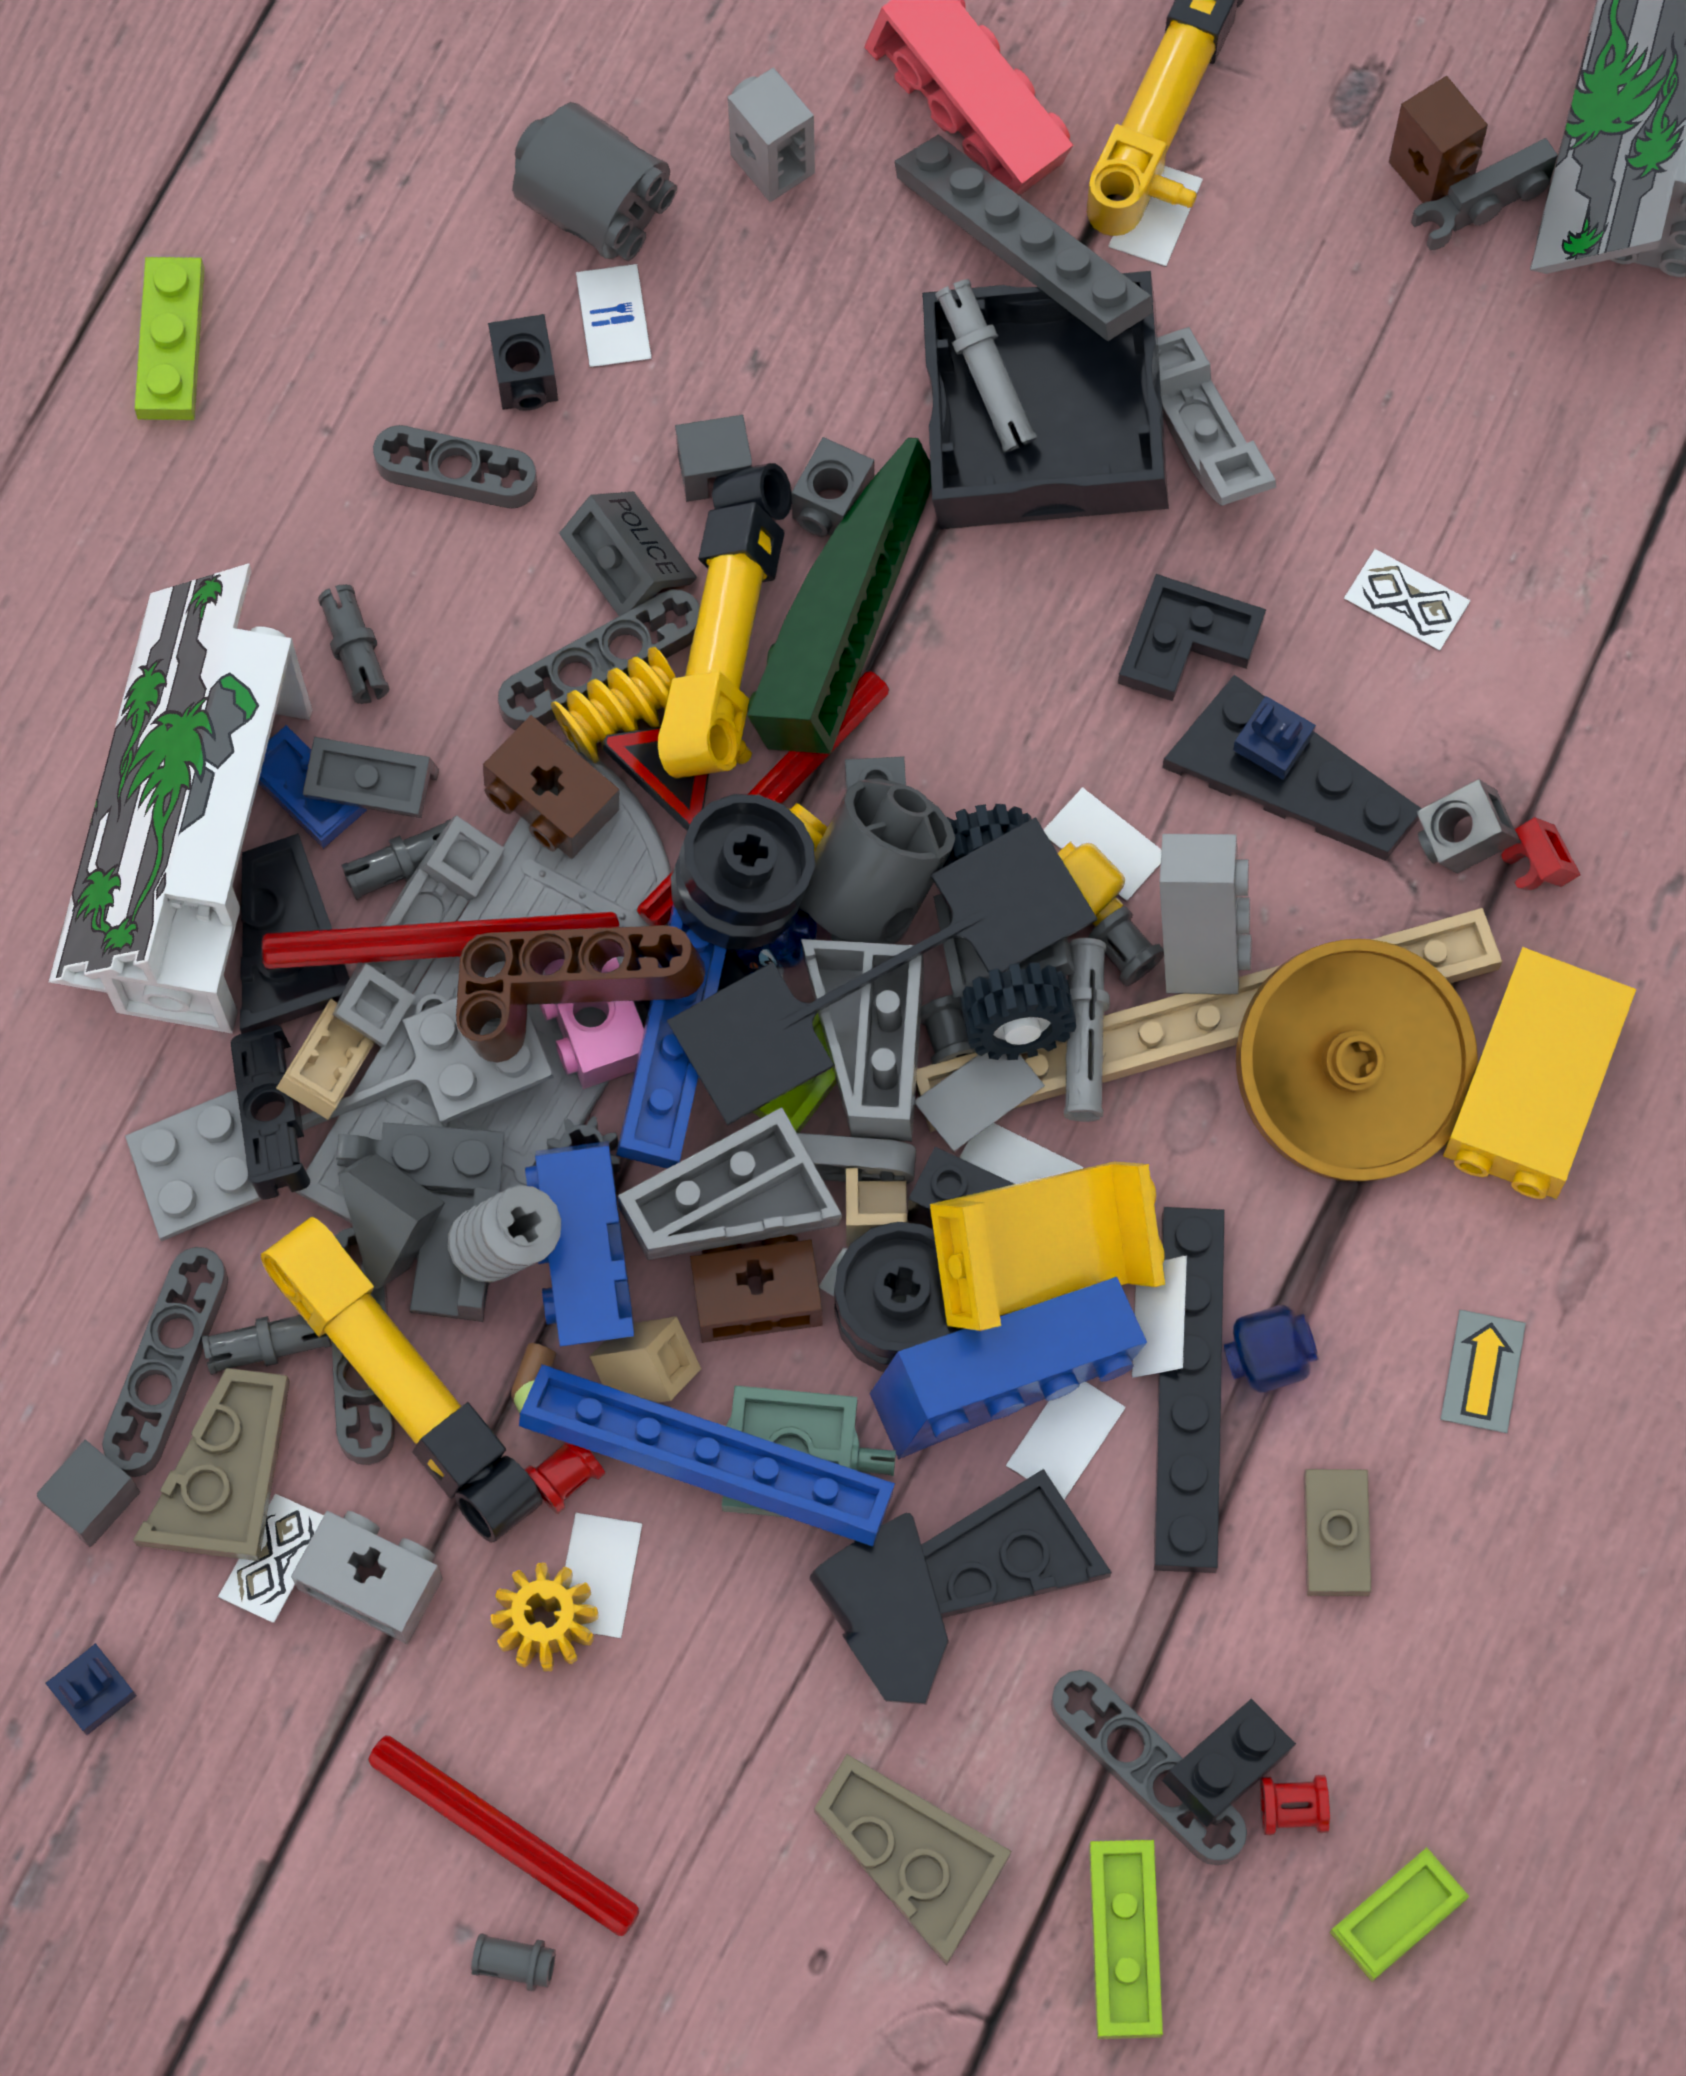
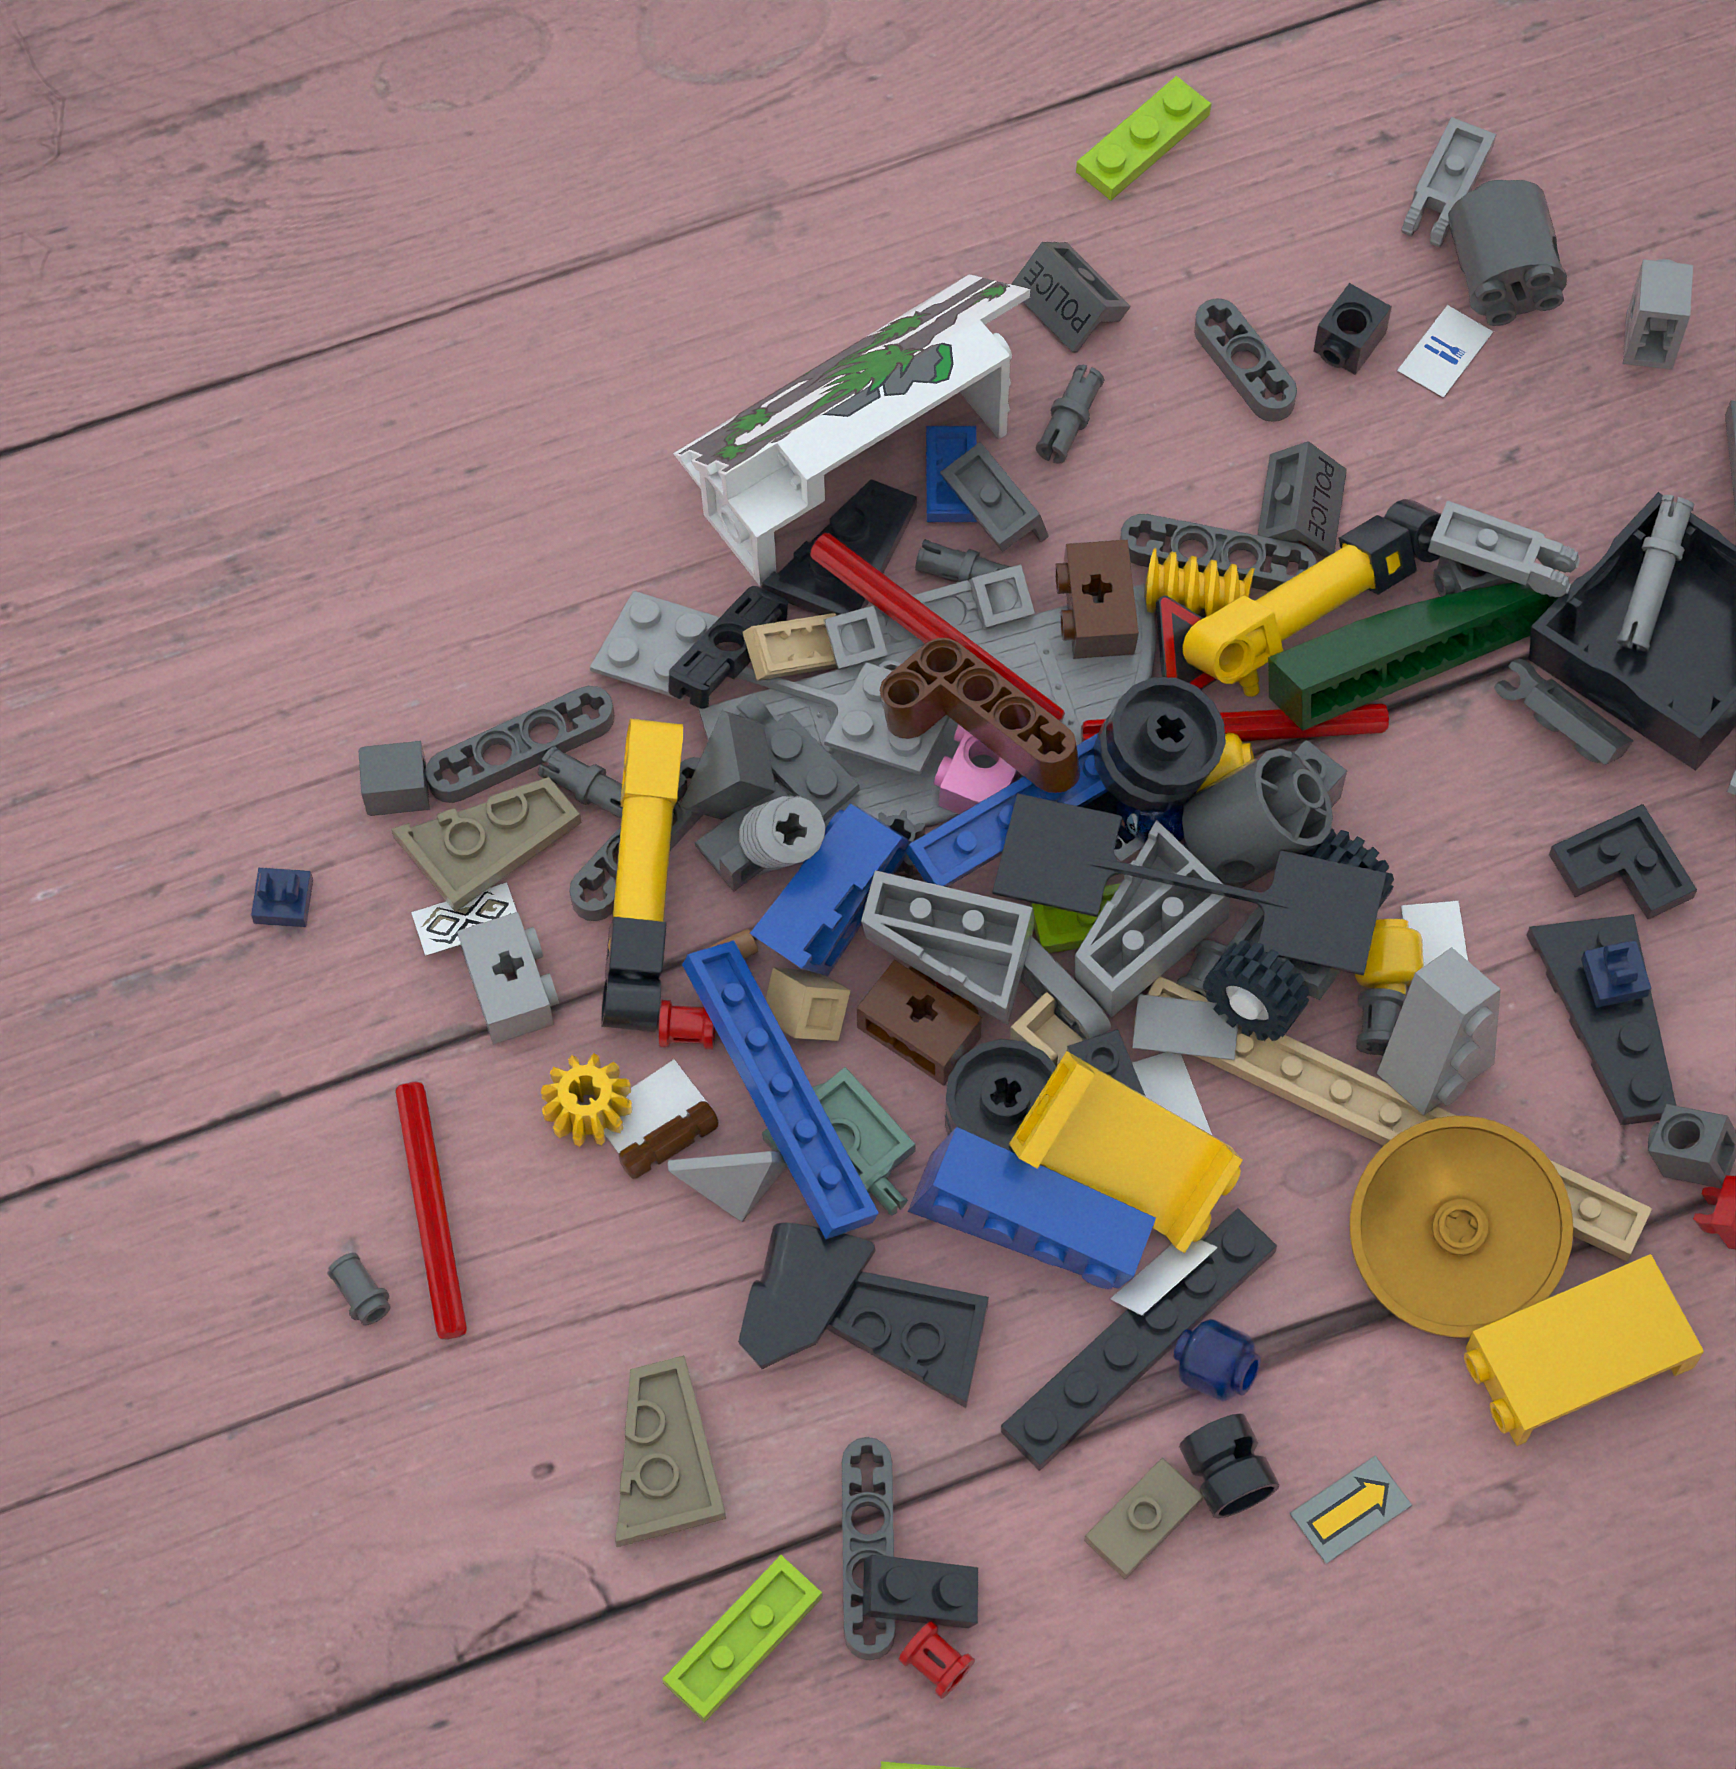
camera: 45 degrees right, 5 degrees down
(245, 529) = (1068, 293): none -> dark grey panel
(472, 155) = (1449, 176): none -> light grey hinge
(644, 1585) = (668, 1139): none -> reddish brown axle
(710, 451) = (1417, 479): dark grey panel -> none
(734, 1571) = (731, 1180): none -> light grey slope
(847, 452) = (1503, 549): none -> light grey hinge
(1018, 549) = (1564, 712): none -> dark grey plate
(1067, 1436) = (1029, 1296): white sticker -> none
(1085, 1045) = (1336, 1005): light grey pin -> none
(1367, 1426) = (1226, 1460): none -> black wheel

